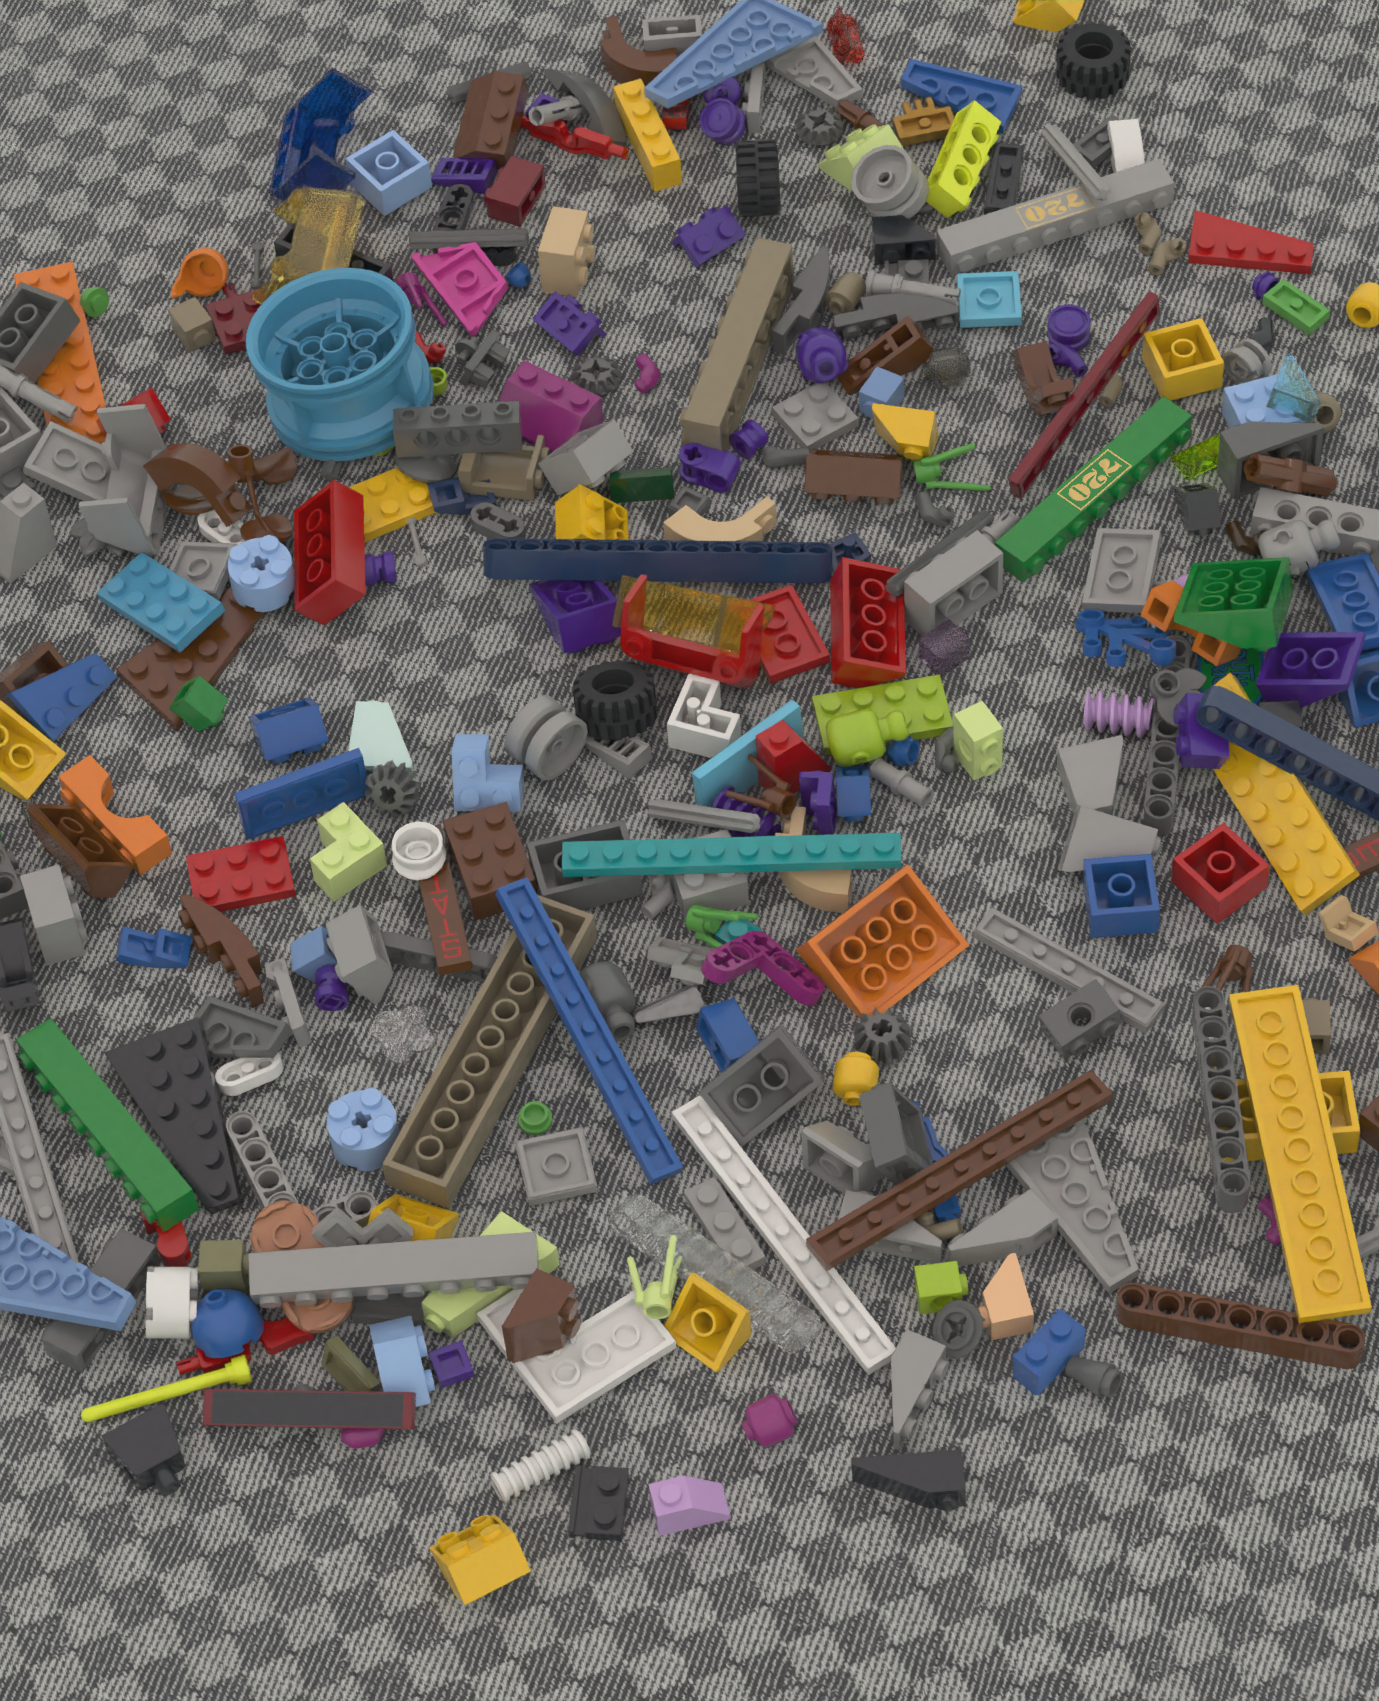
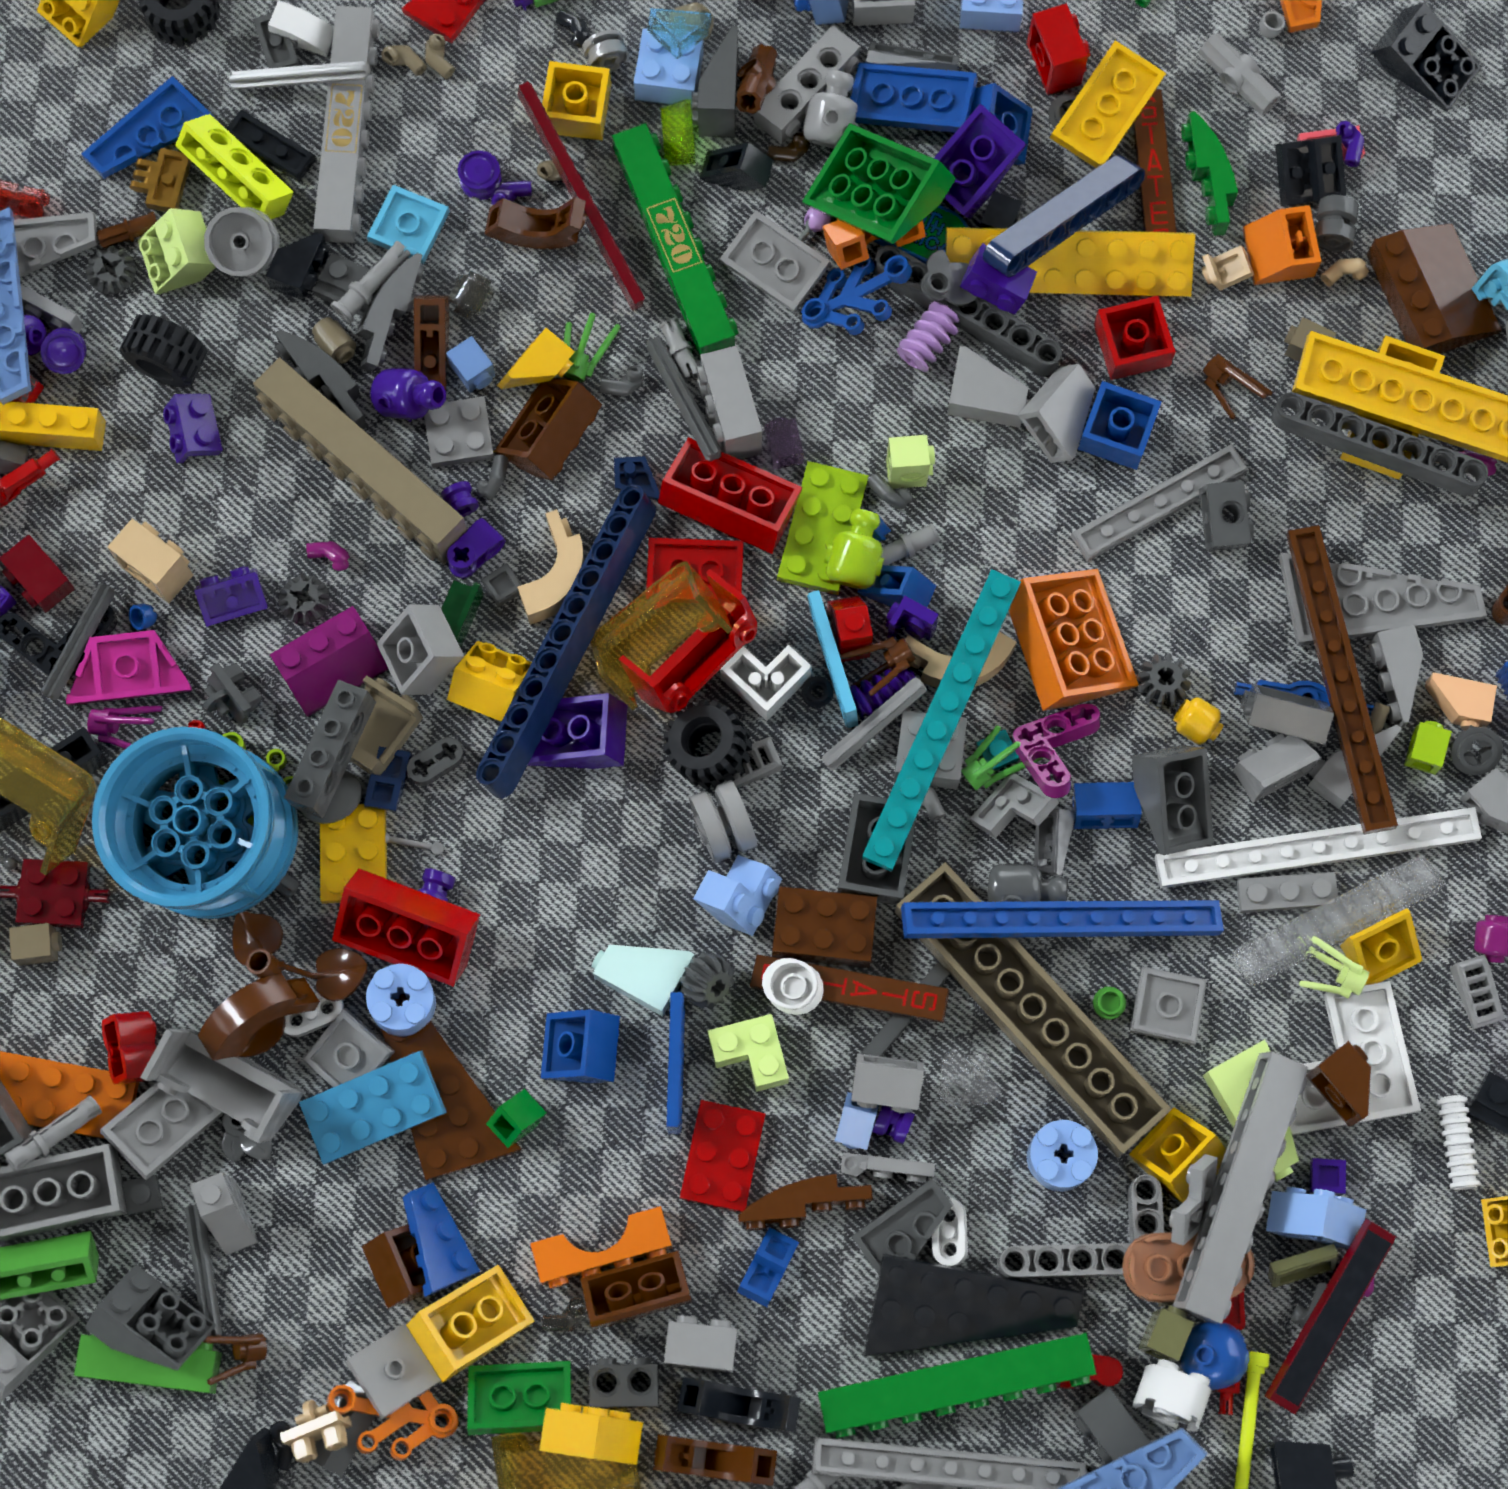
camera: 70 degrees left, 20 degrees up
(710, 1410) = (1485, 976): none -> light grey slope

